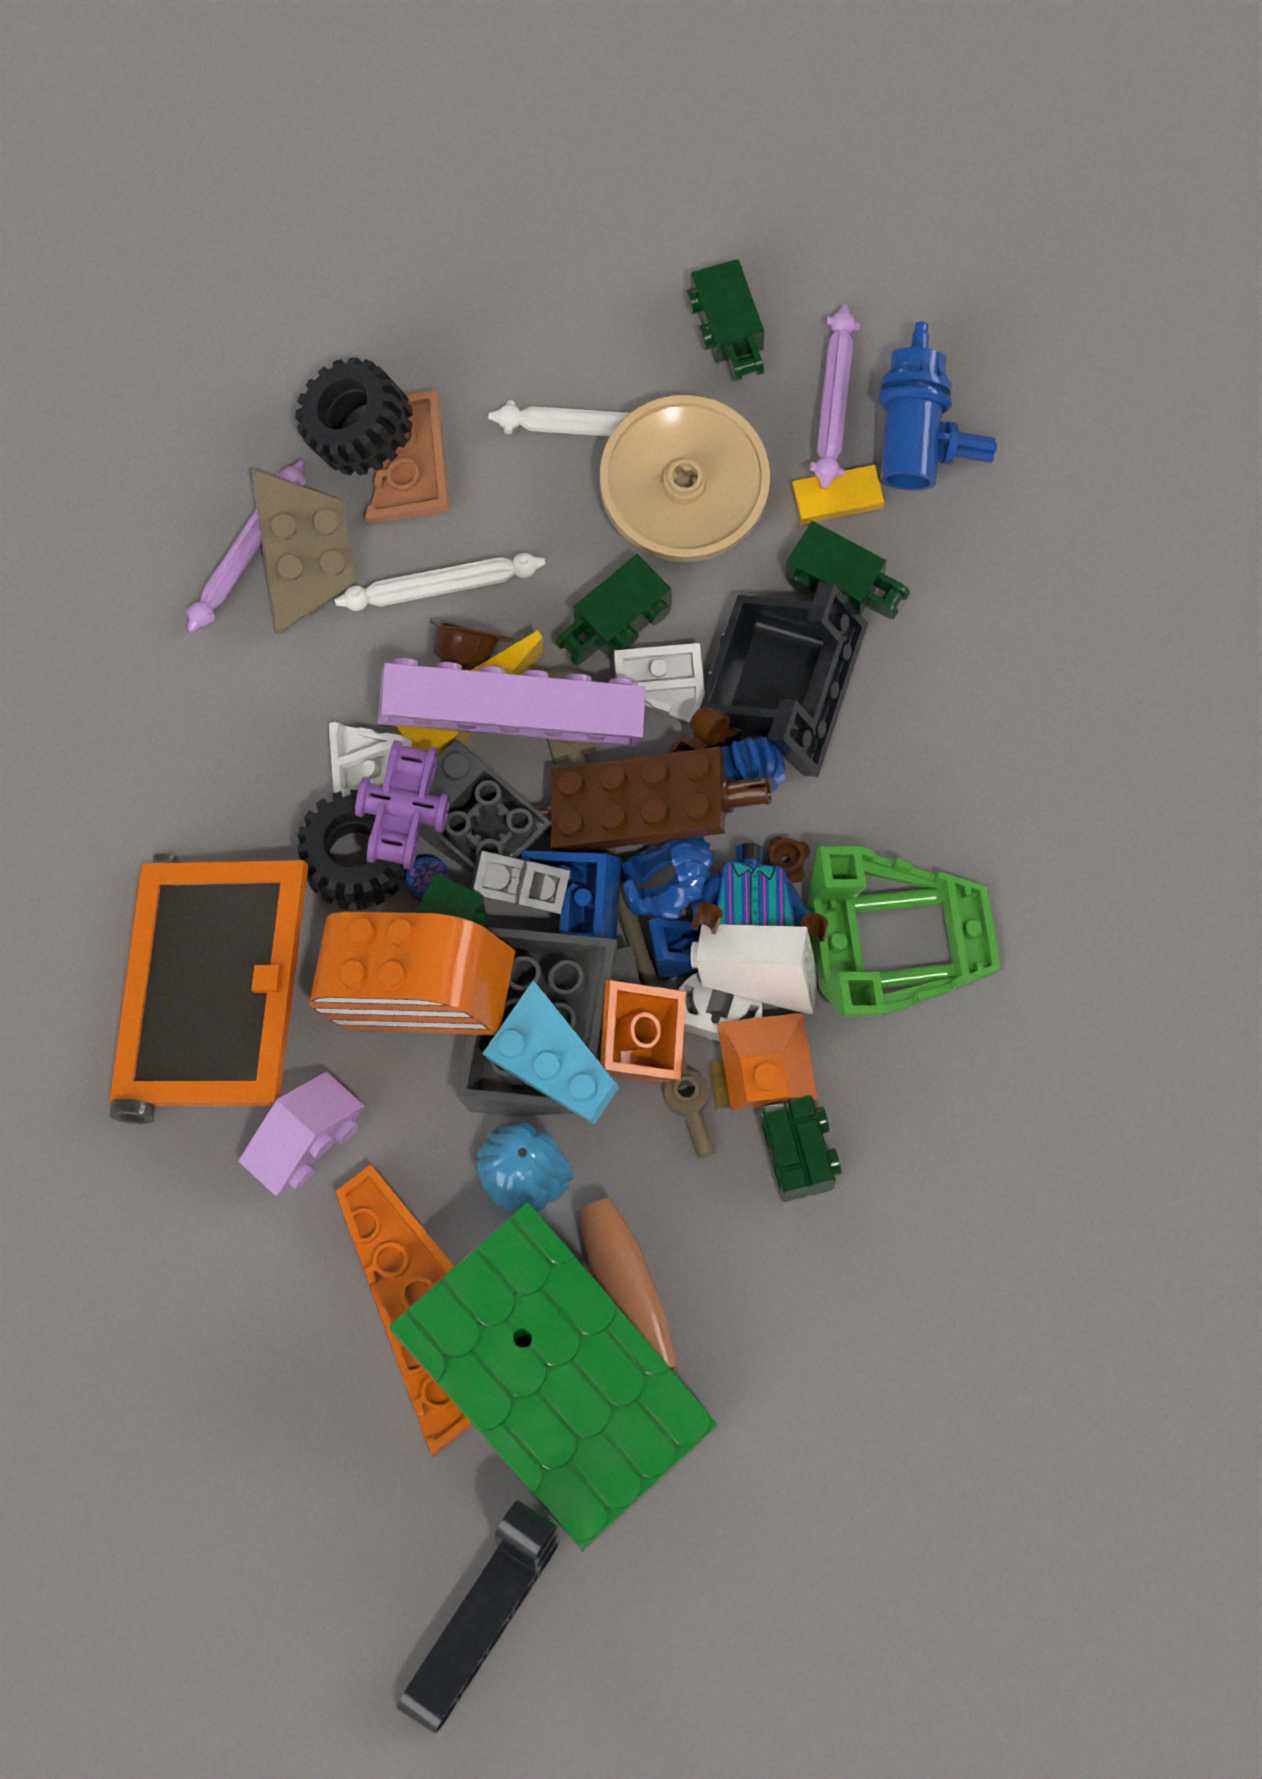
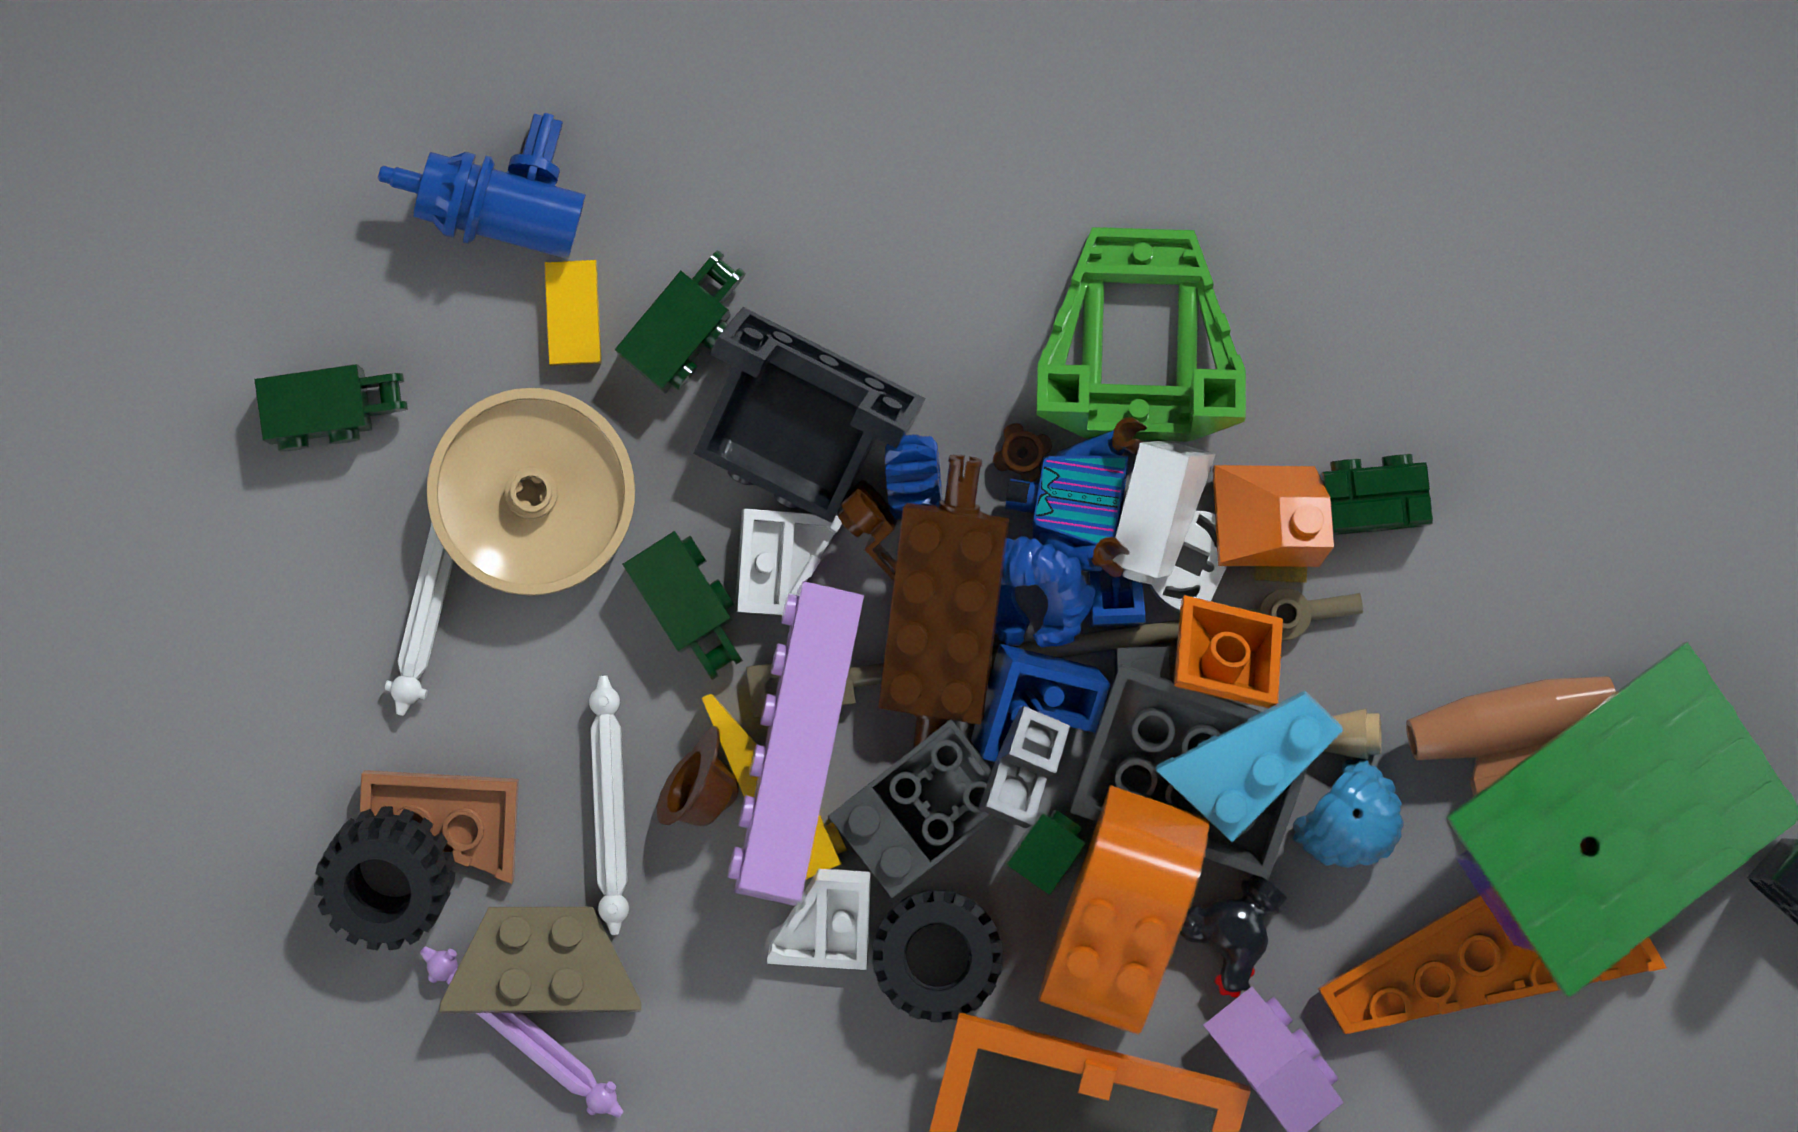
camera: 80 degrees left, 15 degrees up
(402, 805) = (930, 898): medium lavender axle -> none
(410, 1089) = (1235, 931): none -> black animal
(422, 874) = (980, 873): blue tile -> none
(591, 1159) = (1359, 736): none -> tan cone
(834, 397) = (448, 294): lavender wheel -> none

